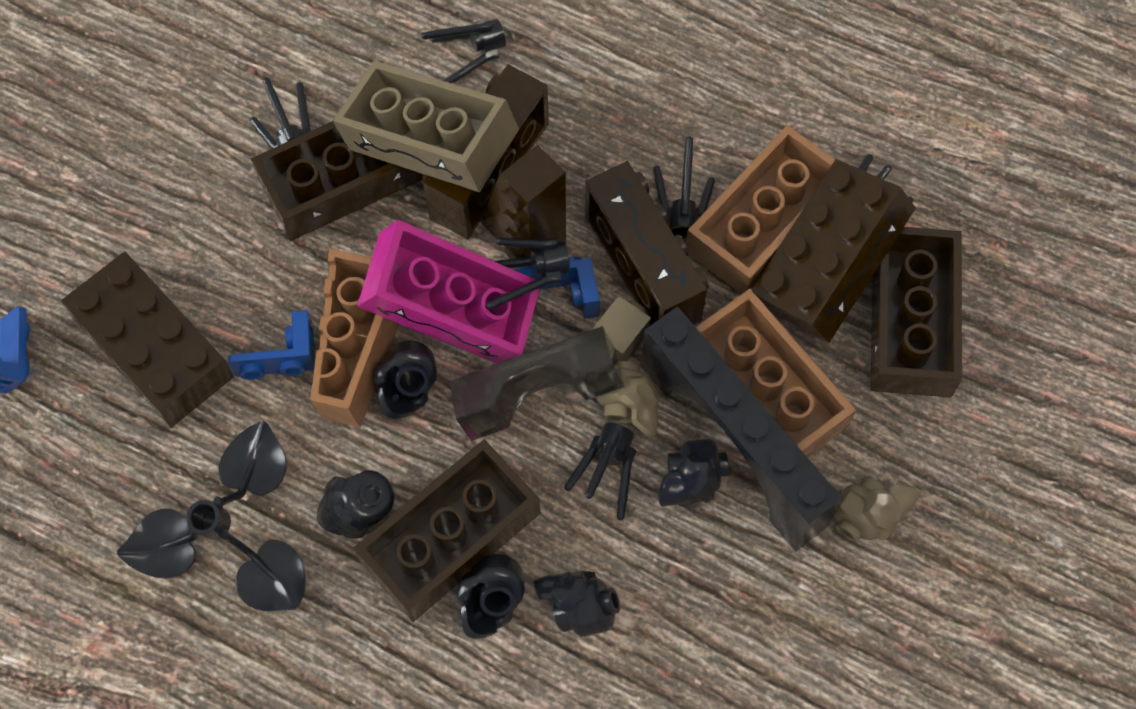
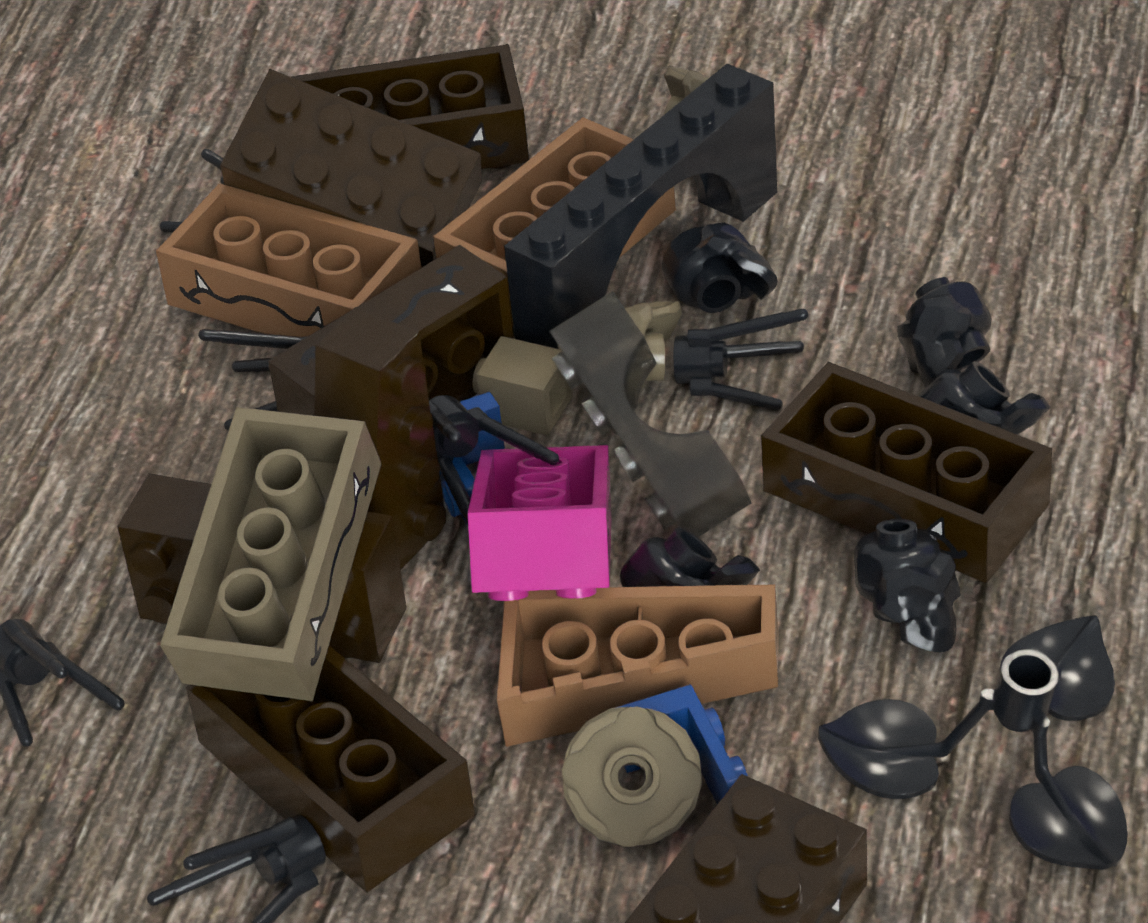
camera: 100 degrees left, 25 degrees down
(265, 314) = (640, 739): none -> dark tan plate

